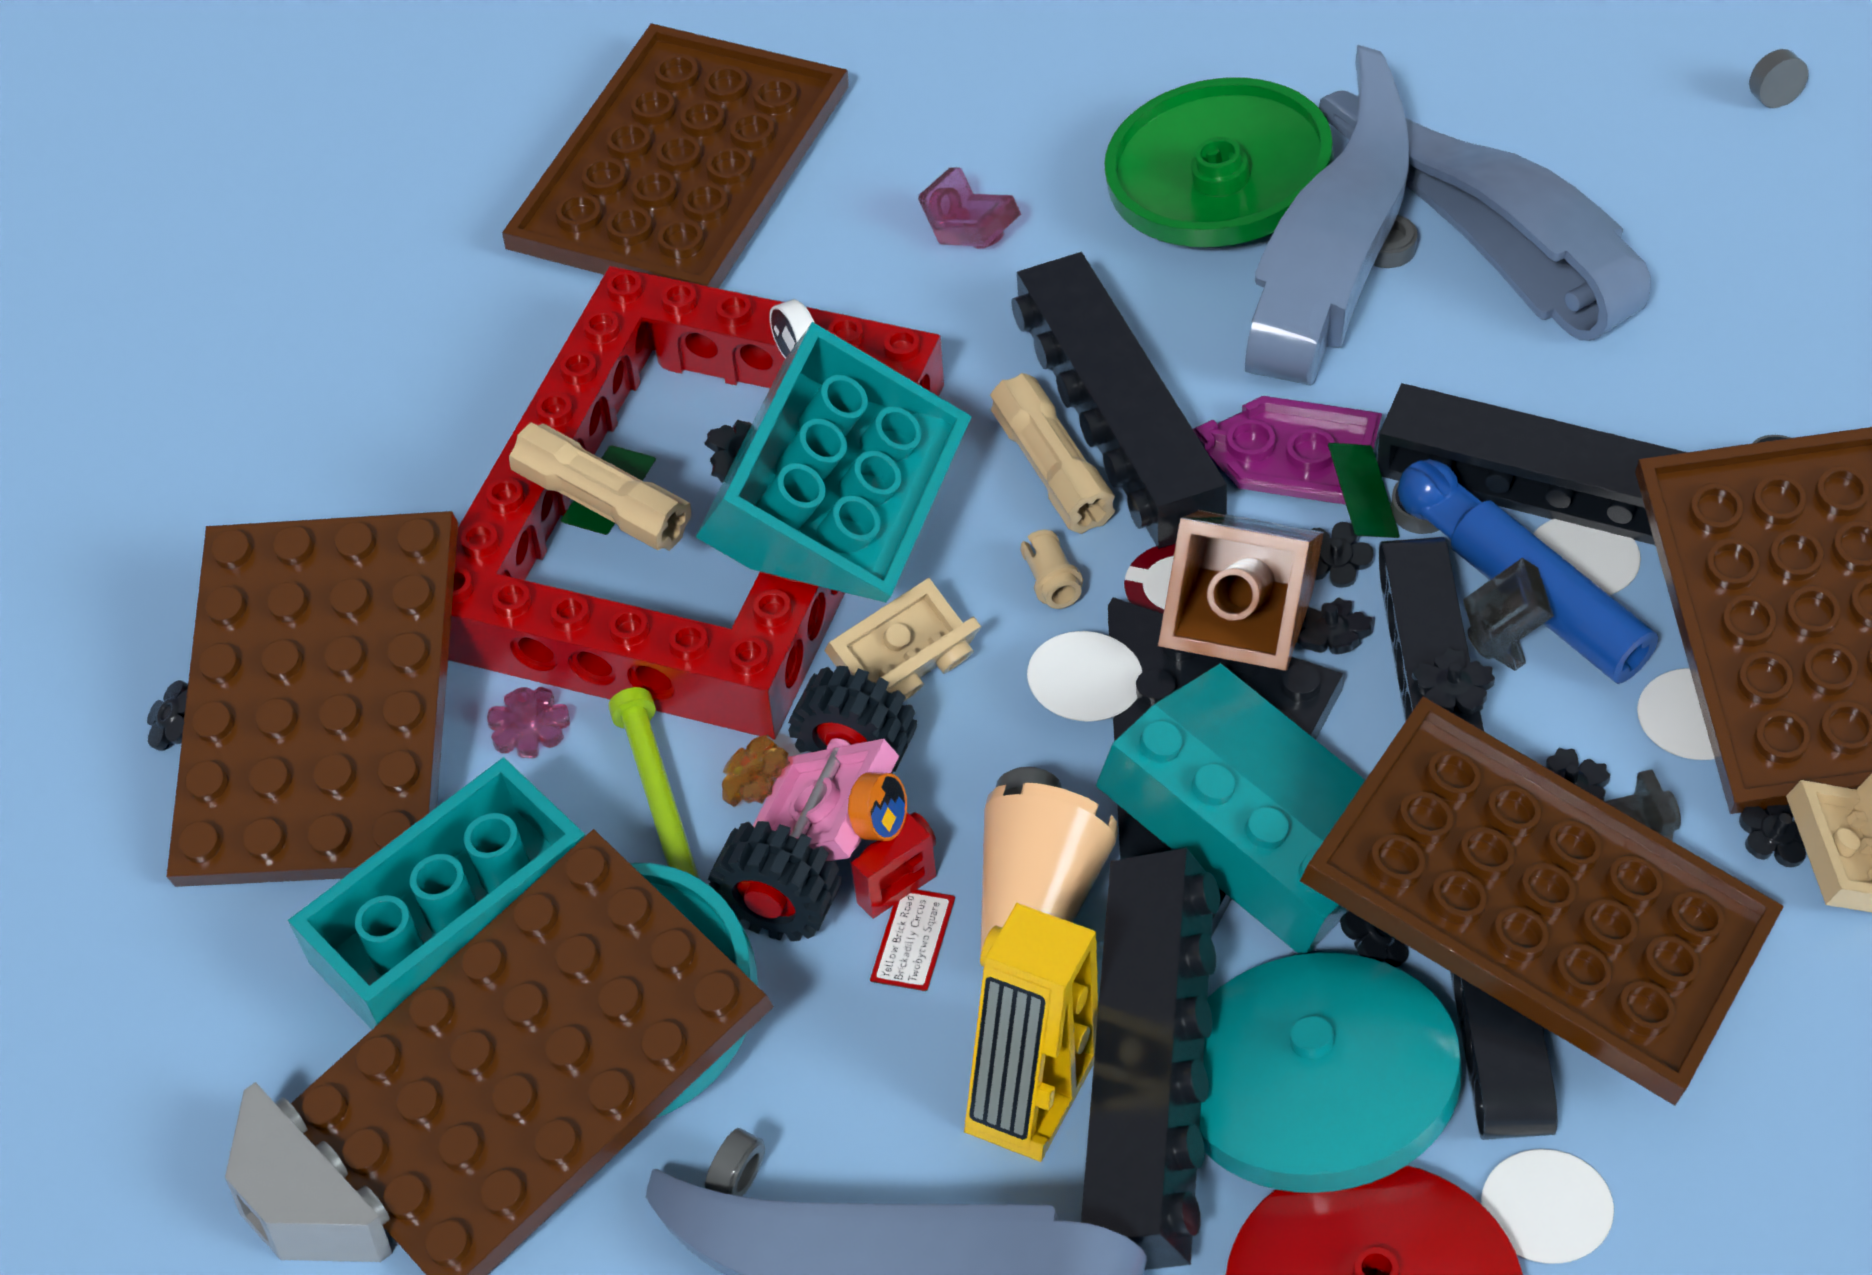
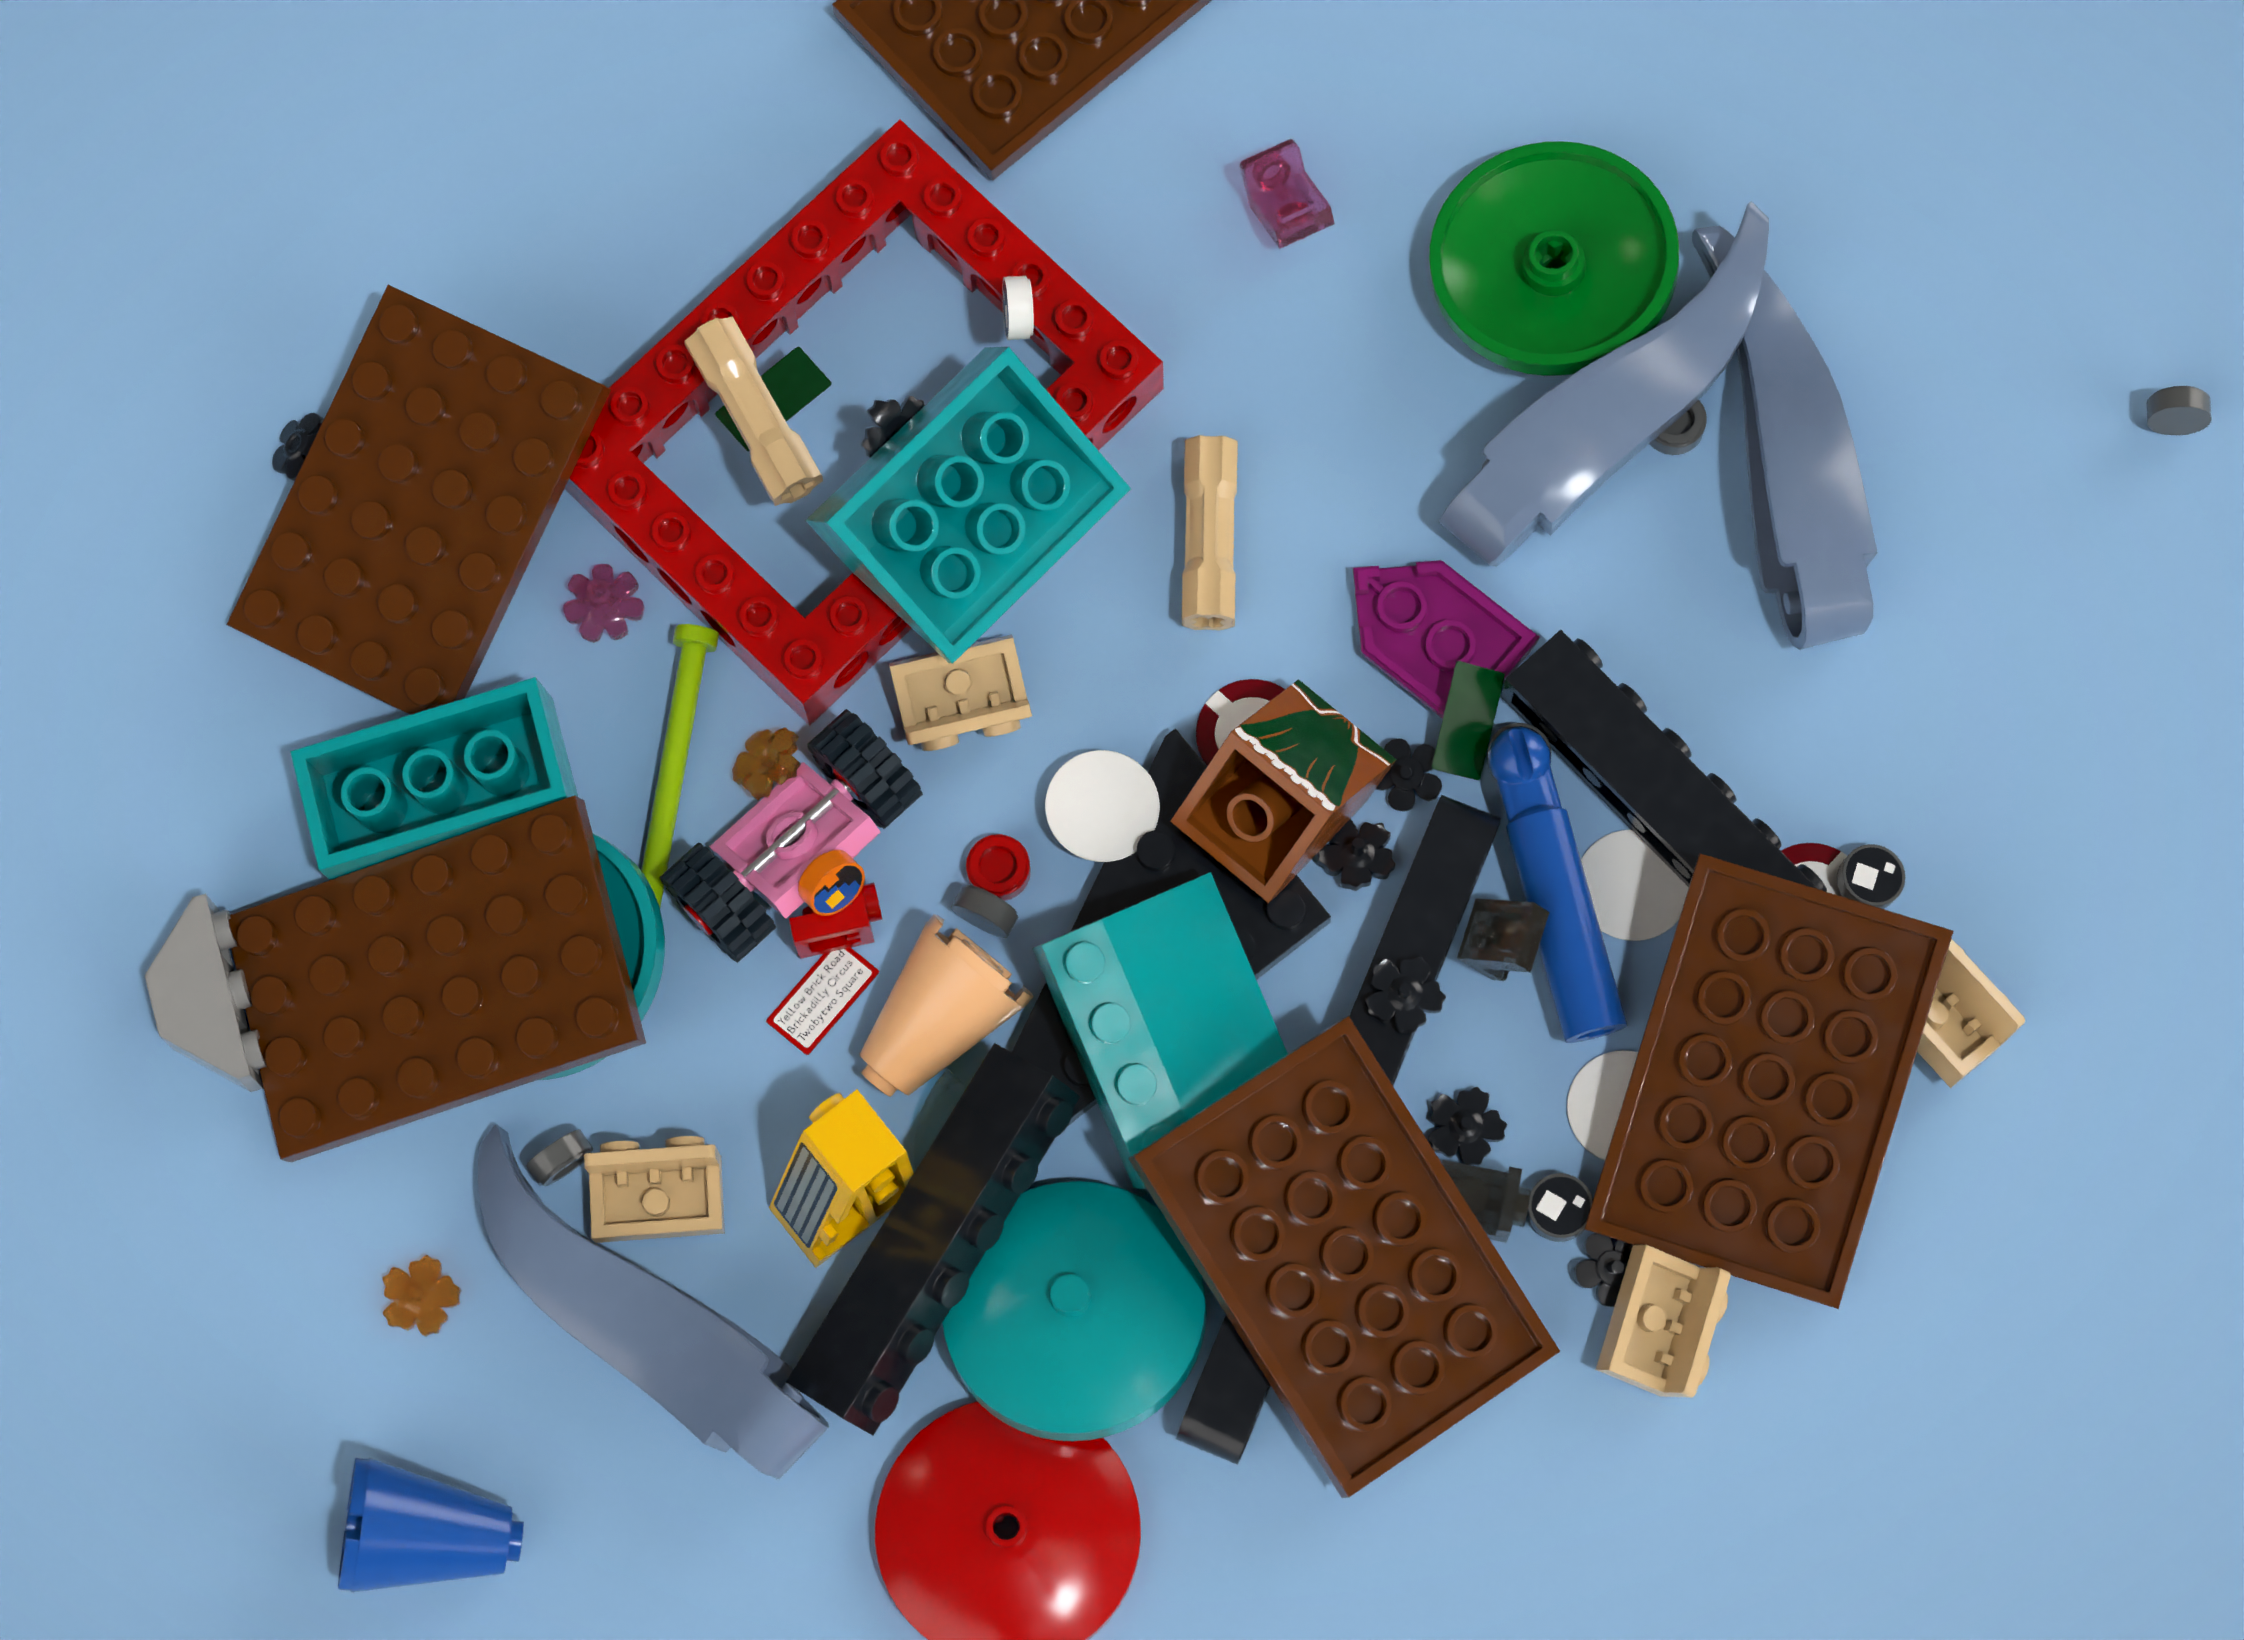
camera: 25 degrees right, 25 degrees up
(847, 1144) = (655, 1190): none -> tan bracket
(1014, 753) = (999, 866): none -> red tile
(1056, 580) = (1138, 668): tan pin -> none
(1117, 396) = (1302, 500): black brick -> none
(1549, 1205) = (1198, 1519): white sticker -> none
(1702, 804) = (1559, 1207): none -> tile

